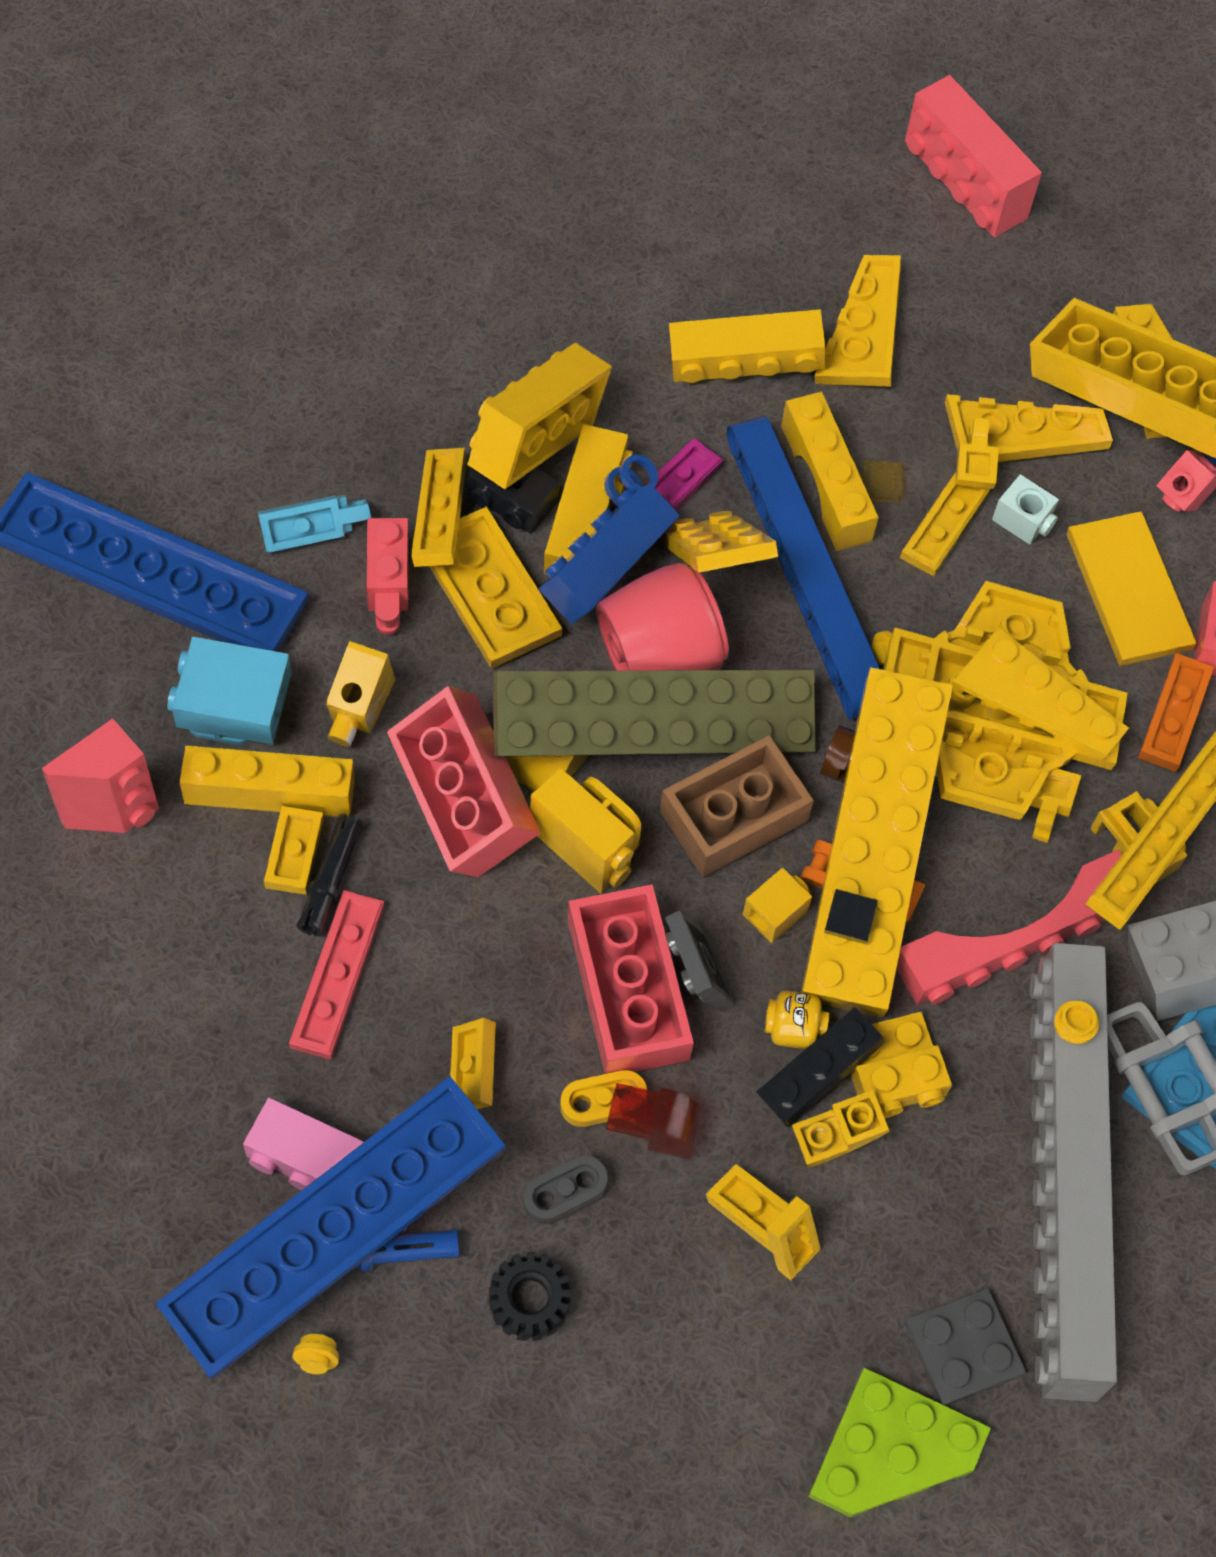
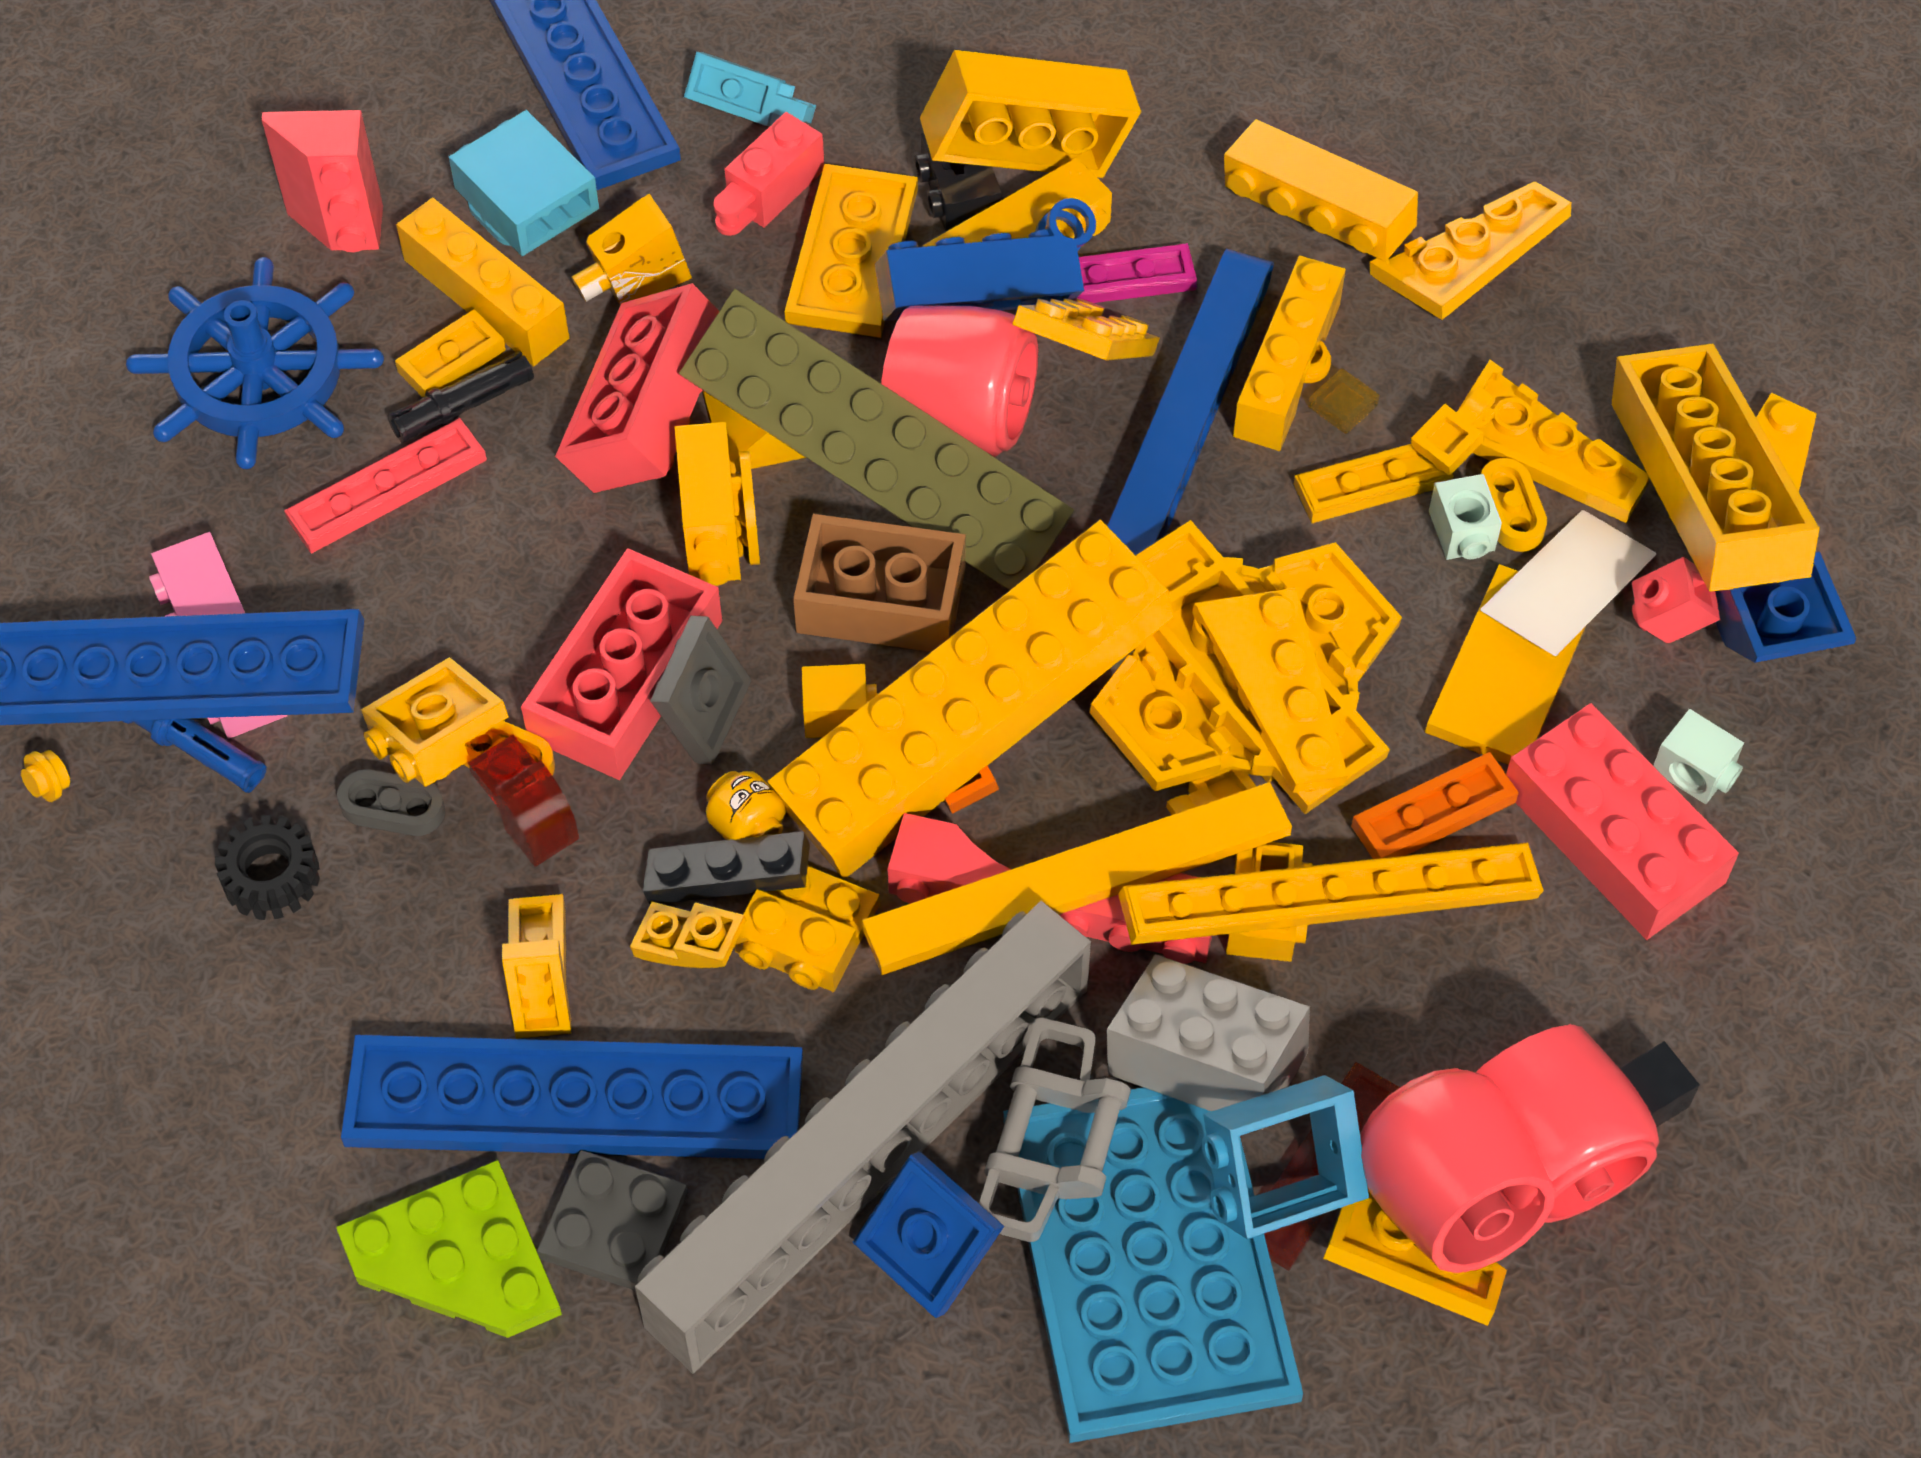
camera: 45 degrees right, 5 degrees down
(165, 953) = (255, 361): none -> blue piece
(439, 507) = (858, 149): yellow plate -> none
(474, 1060) = (430, 628): yellow plate -> none
(548, 1113) = (430, 721): none -> yellow plate
(850, 916) = (864, 736): black tile -> none
(866, 1291) = (571, 1096): none -> blue plate
(972, 156) = (1740, 152): coral brick -> none
(1039, 914) = (1076, 877): none -> yellow tile
(1045, 476) = (1517, 507): none -> yellow plate
(1076, 1022) = (981, 982): yellow plate -> none
(1117, 511) = (1568, 582): none -> white sticker
(1161, 1203) = (928, 1234): none -> blue tile

